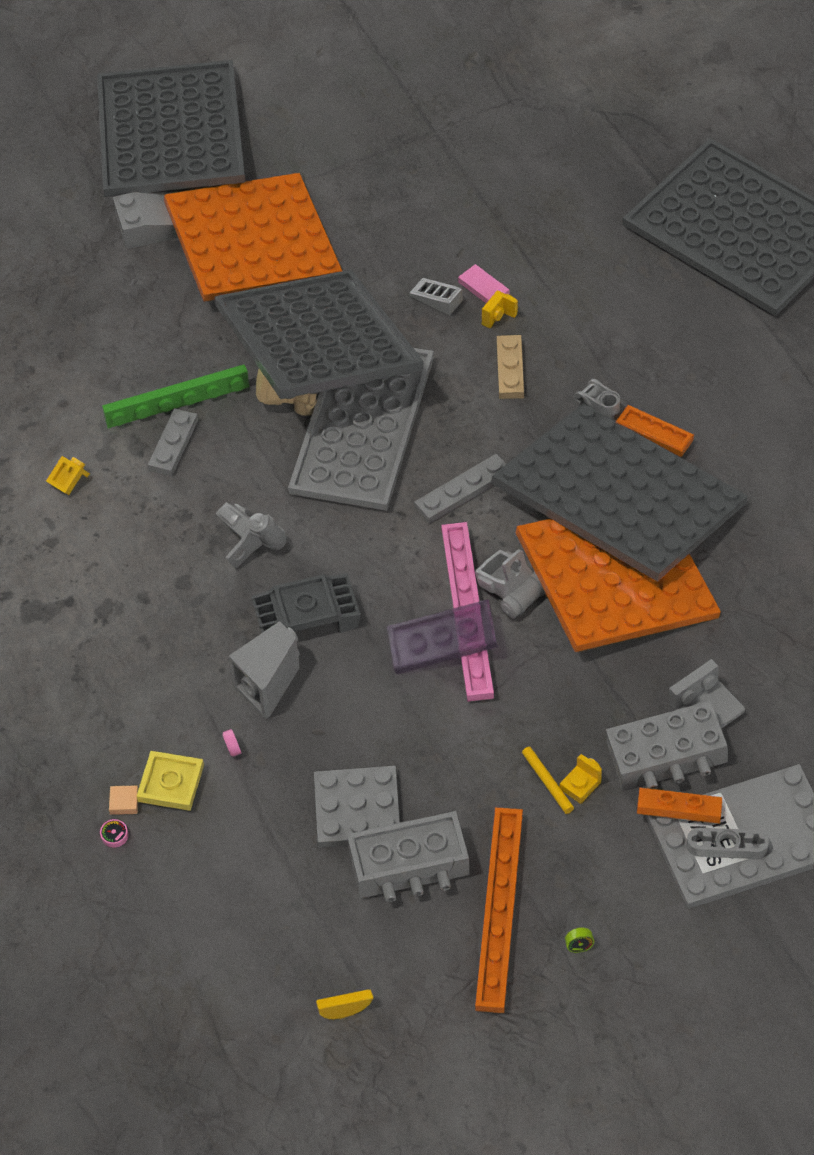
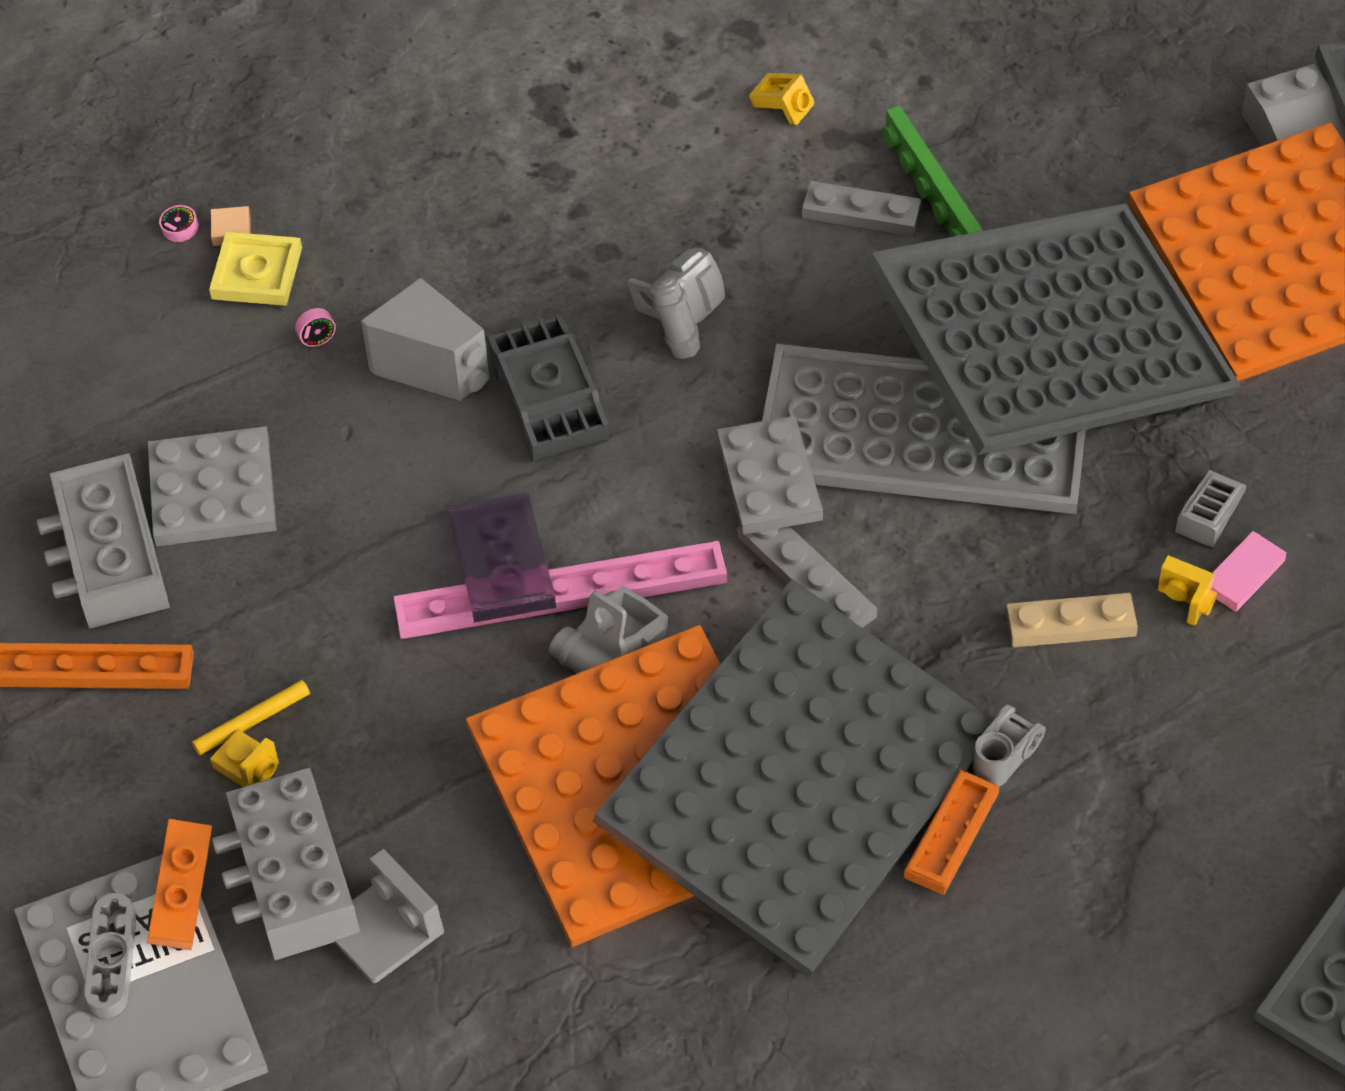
camera: 85 degrees right, 0 degrees up
(396, 494) = (769, 475): none -> light grey plate

